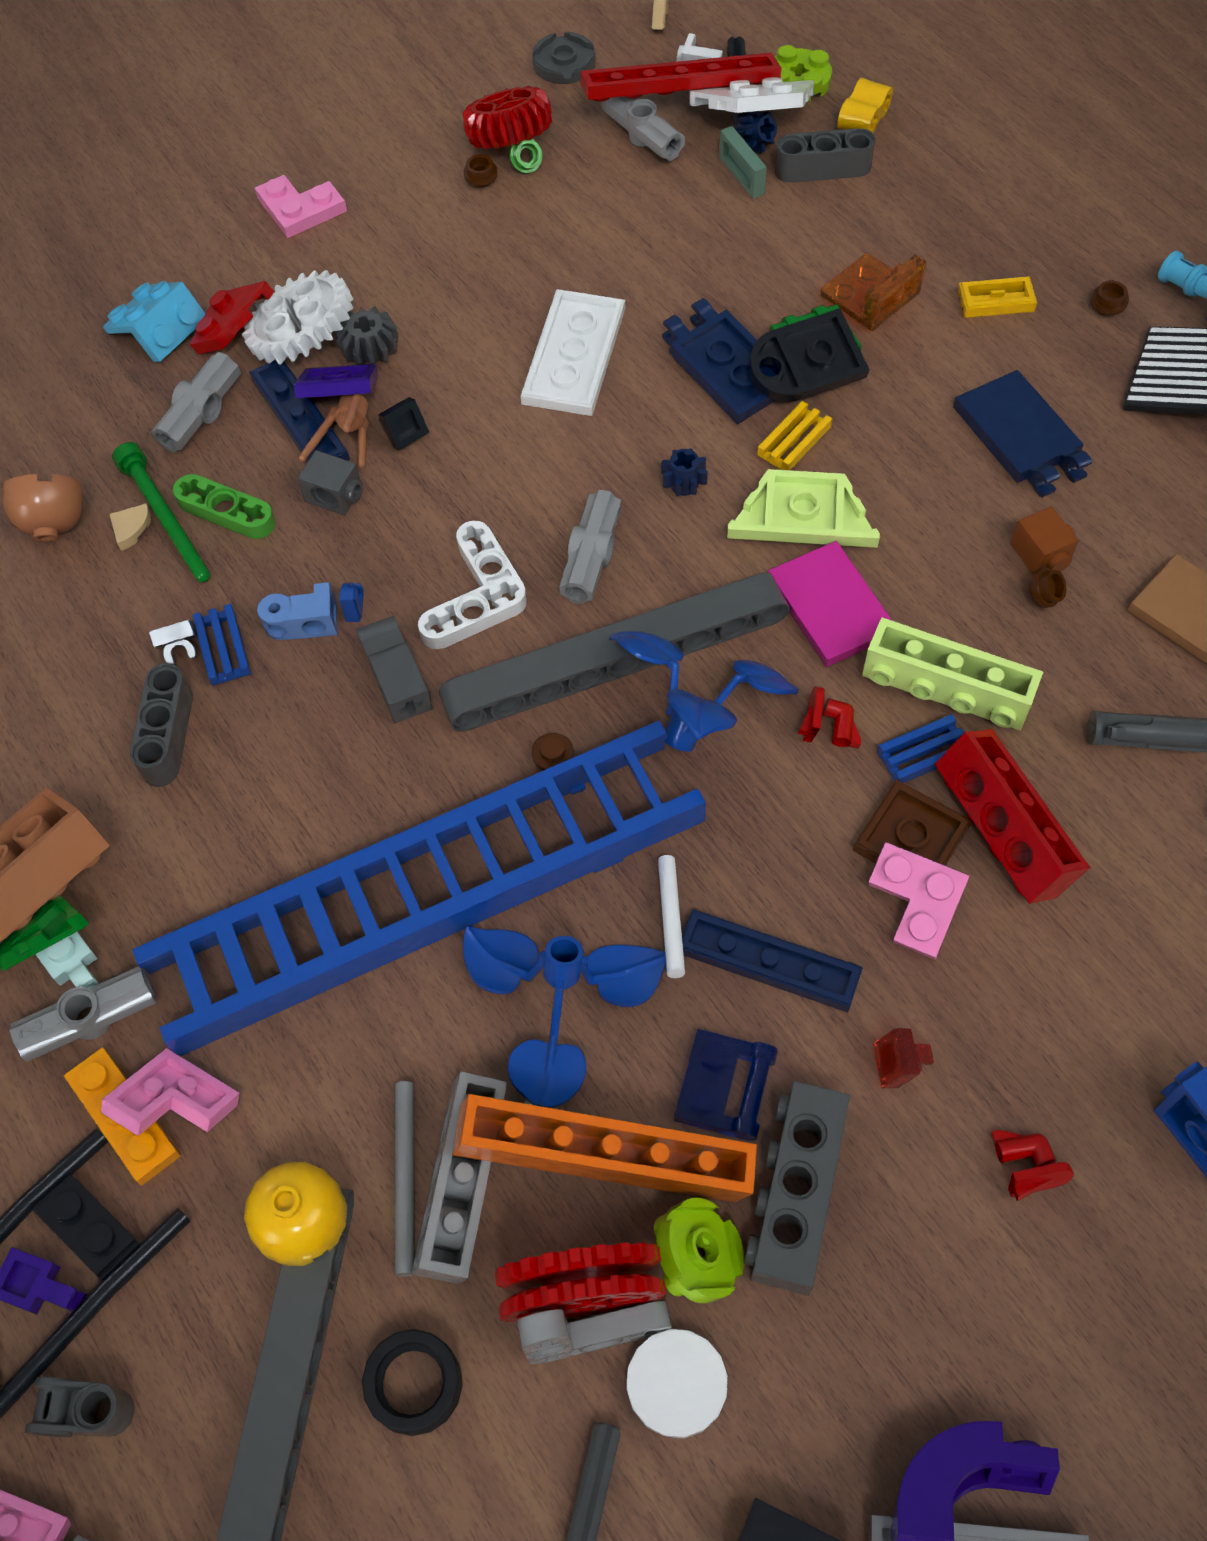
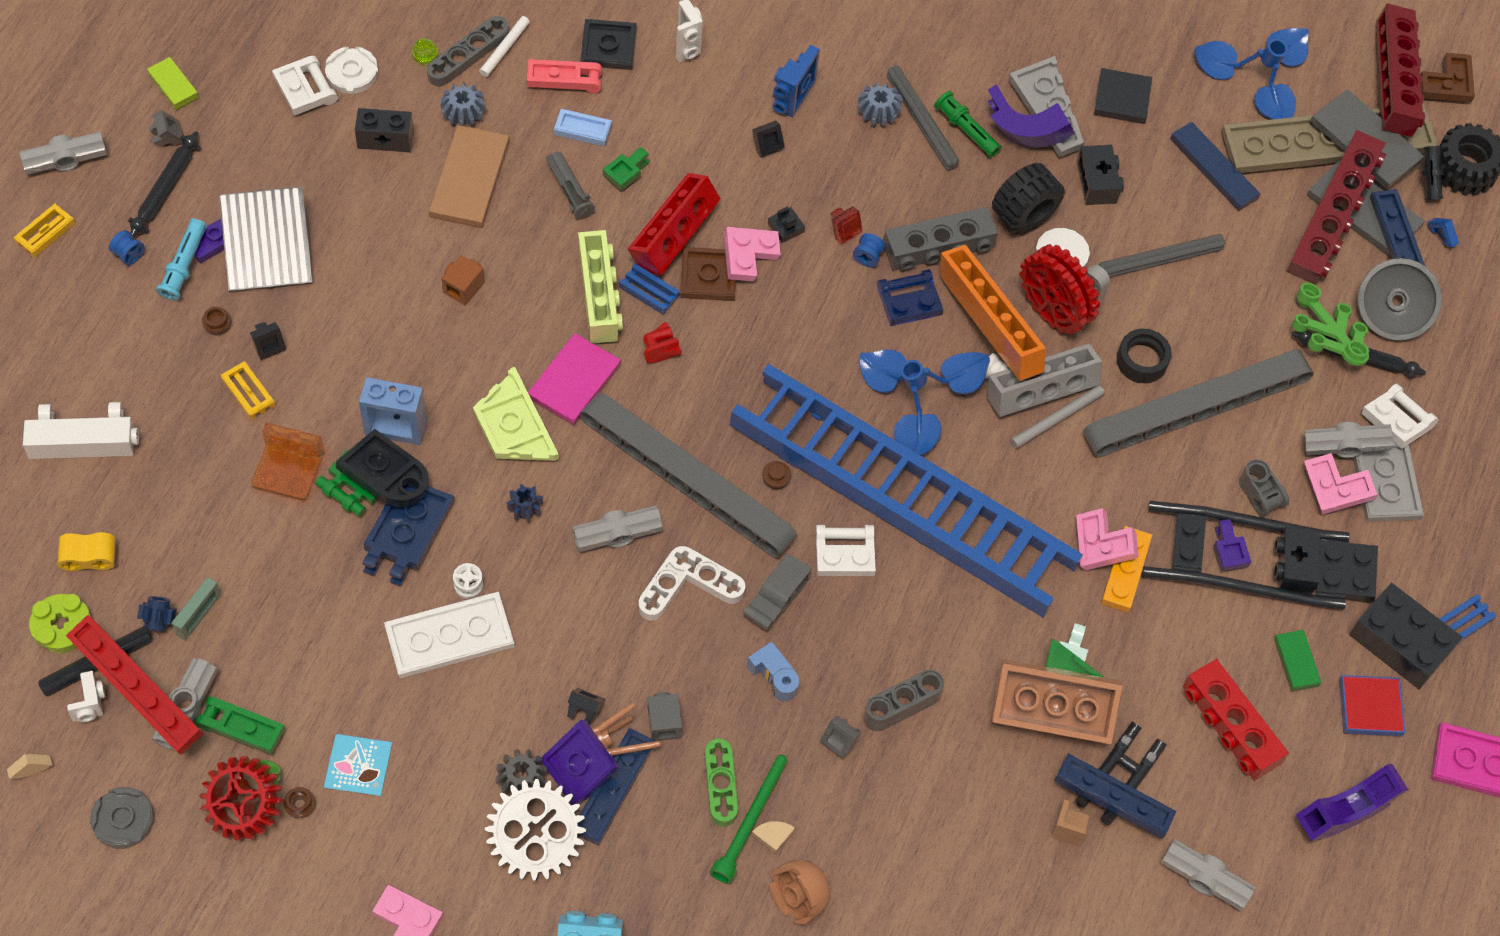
camera: 130 degrees left, 0 degrees up
(59, 1023) = (1110, 626): light grey piece -> none
(196, 402) = (648, 857): light grey piece -> none
(215, 619) = (839, 693): blue tile -> none
(227, 315) = (558, 889): red wing -> none
(295, 1213) = (1116, 433): yellow cylinder -> none
(352, 601) = (749, 647): blue tile -> none
(389, 769) = (845, 559): none -> white plate
(488, 233) = (358, 764): none -> medium azure sticker
(591, 156) = (240, 725): none -> green plate
(622, 384) = (463, 576): none -> white wheel
(671, 917) = (838, 362): white bar -> none
(684, 1269) = (1004, 262): lime plate -> none
(691, 715) = (690, 435): blue plant -> none
(744, 97) = (130, 615): white wing -> none
(770, 960) = (828, 309): dark blue tile -> none
(790, 1364) = (1028, 198): none -> black tyre
(809, 417) = (451, 453): yellow tile -> none
(824, 155) = (157, 543): dark grey beam -> none
(835, 1065) = (869, 250): none -> blue wheel
(873, 376) = (382, 407): none -> medium blue window
(946, 982) = (786, 223): none -> black tile
(1009, 140) = (80, 436): none -> white brick
(1023, 432) = (369, 329): dark blue tile -> none
(1032, 1381) = (959, 116): none -> green pin
(1046, 1173) = (855, 165): red piece -> none
(1047, 587) = (496, 267): reddish brown plate -> none
(1054, 326) = (267, 339): none -> black tile
(1063, 1317) = (923, 117): none -> dark grey axle
(1110, 1269) = (879, 104): none -> sand blue gear
(1118, 1034) = (768, 138): none -> black tile
(1146, 808) = (626, 170): none -> green plate

